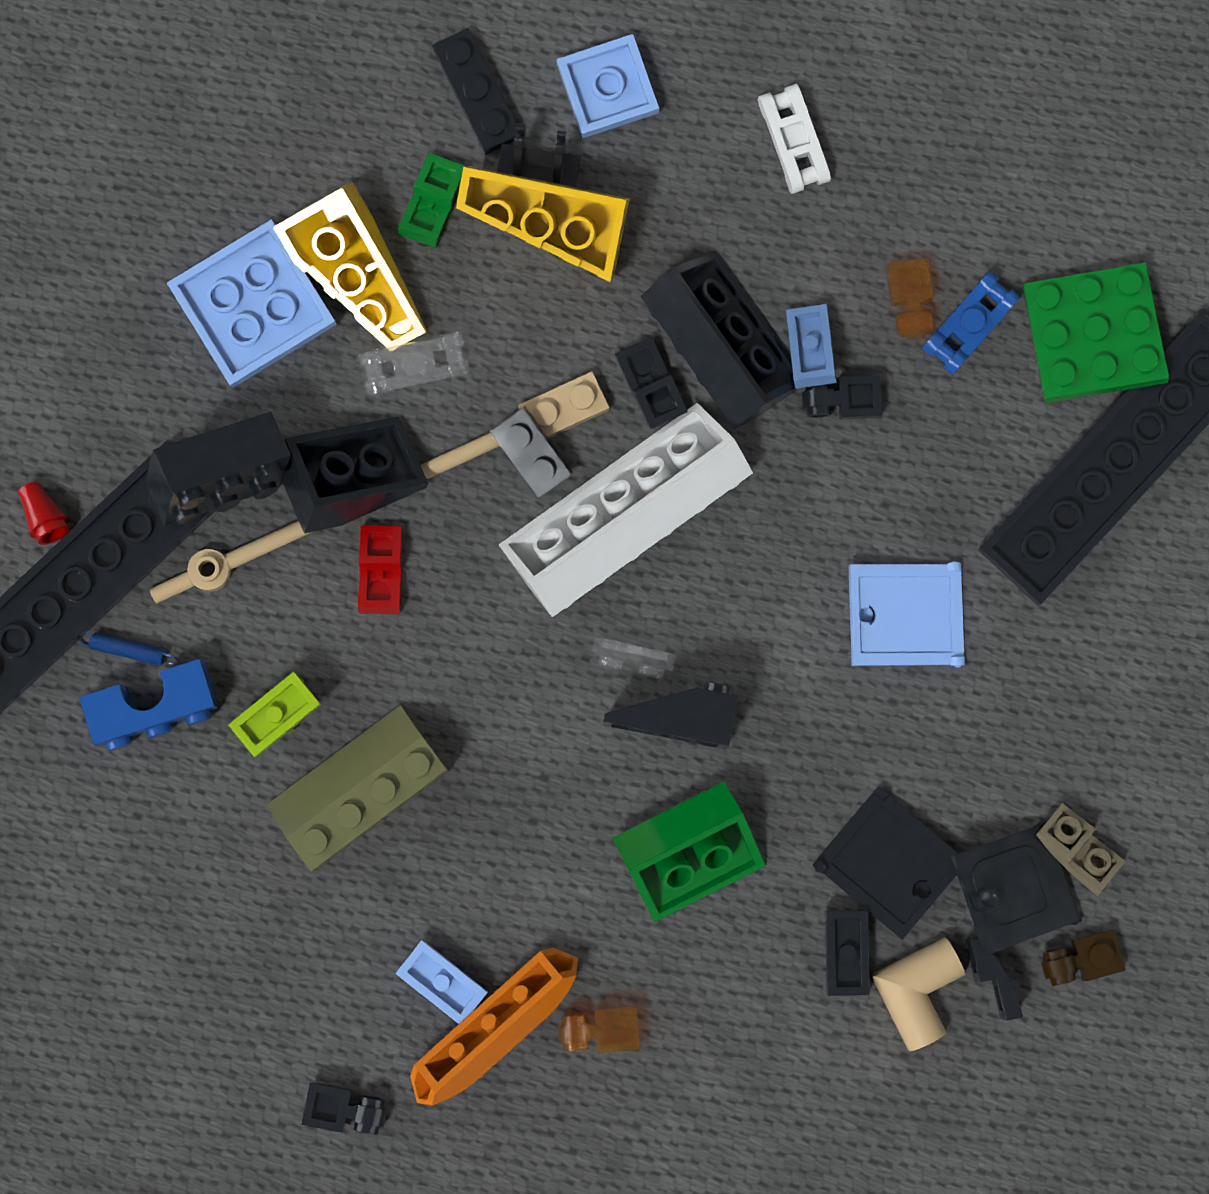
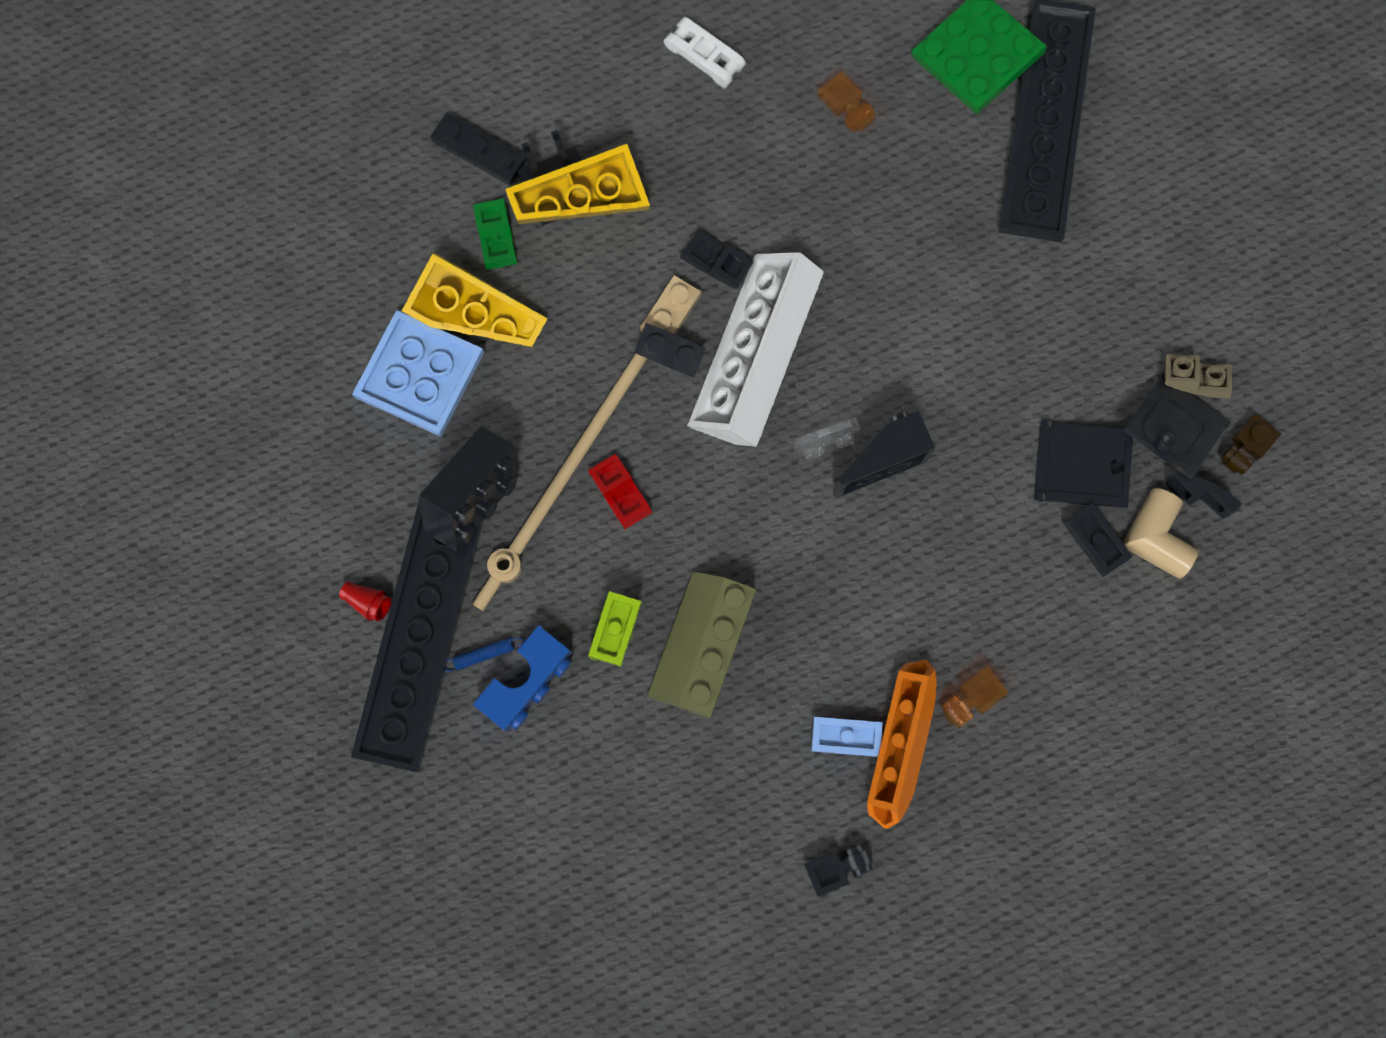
camera: 30 degrees left, 5 degrees down
(350, 472) = (559, 439): black slope -> none
(414, 363) = (553, 343): clear plate -> none
(607, 86) = (562, 92): light blue plate -> none
(689, 851) = (950, 540): green slope -> none
(722, 337) = (744, 202): black slope -> none
(811, 346) = (805, 170): medium blue plate -> none
(856, 396) = (853, 185): black plate -> none
(915, 614) = (987, 297): light blue container -> none
(971, 322) = (895, 95): blue plate -> none

